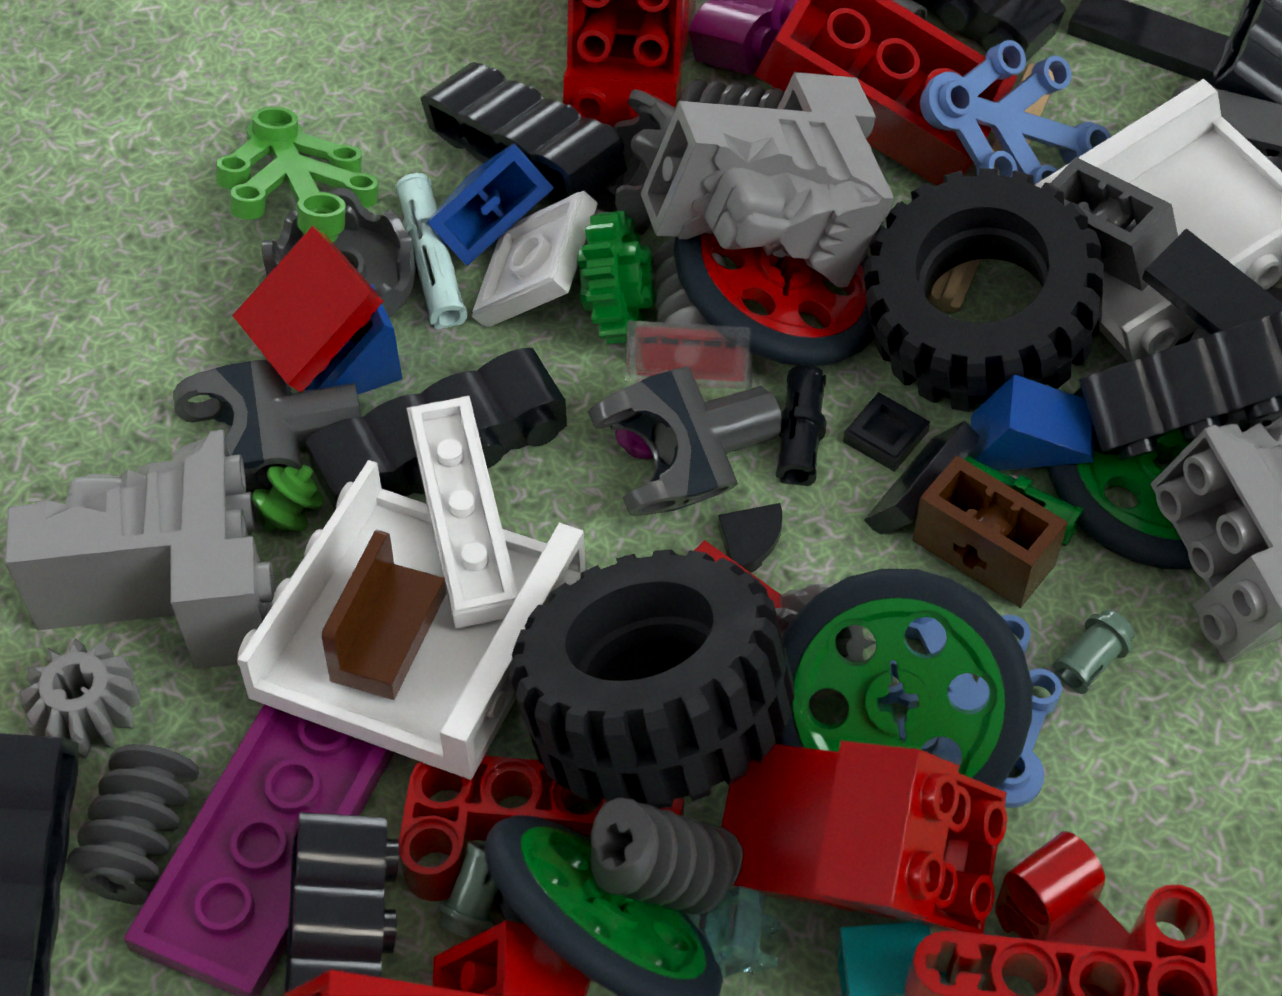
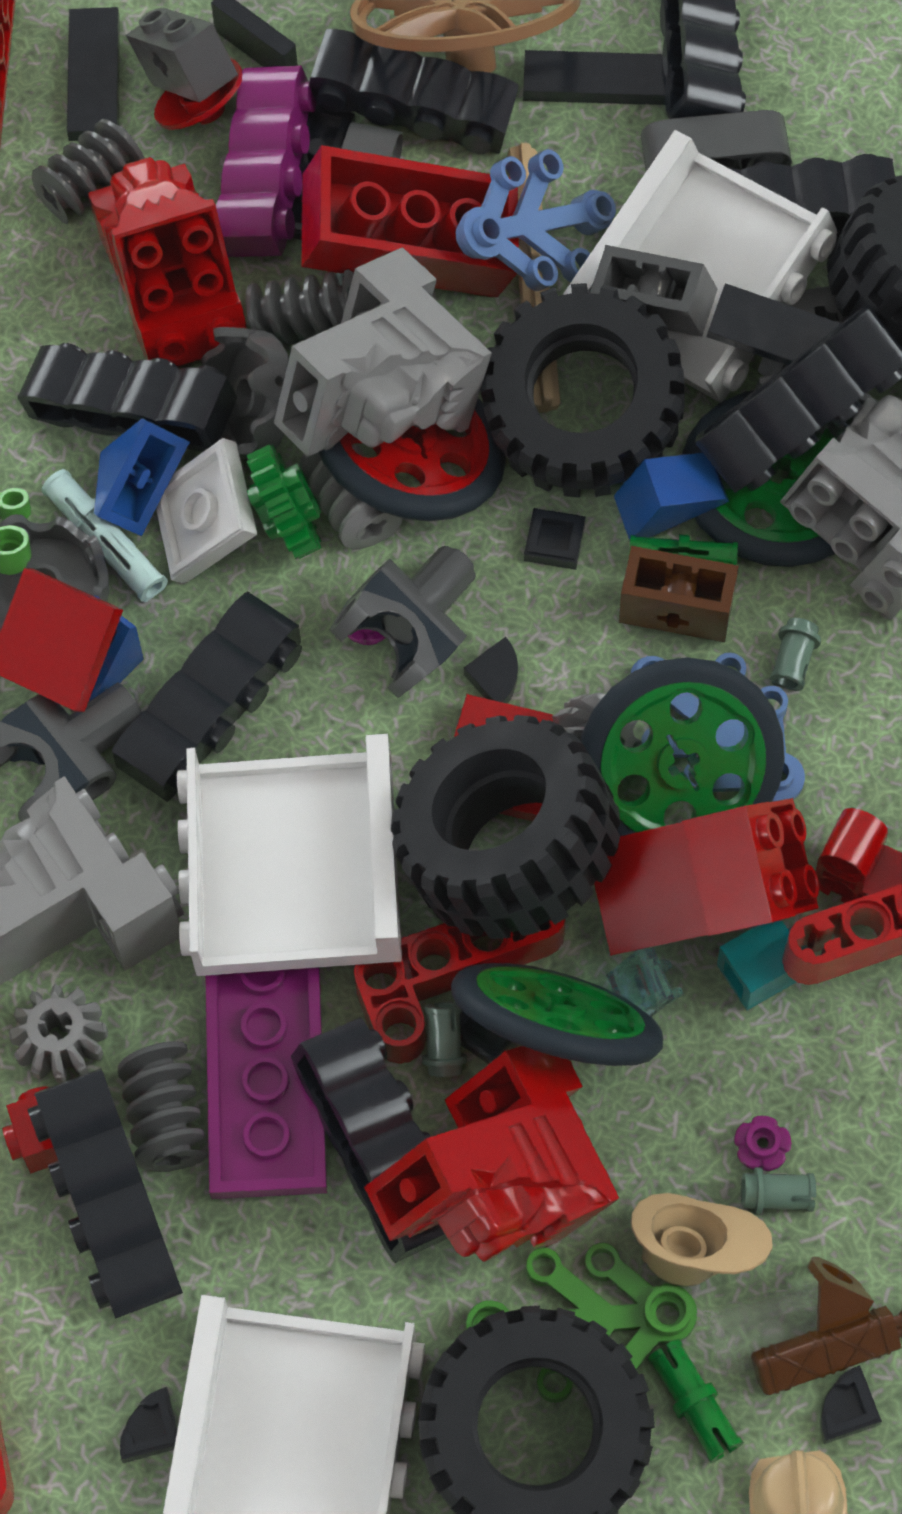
camera: 25 degrees left, 10 degrees up
(287, 498) = (121, 803): bright green wheel -> none
(380, 621) = (277, 874): reddish brown panel -> none
(463, 511) = (277, 755): white tile -> none
(662, 857) = (578, 955): dark grey piece -> none
(706, 349) = (369, 543): clear slope -> none
(801, 426) = (489, 562): black pin -> none
(901, 501) = (605, 569): black tile -> none

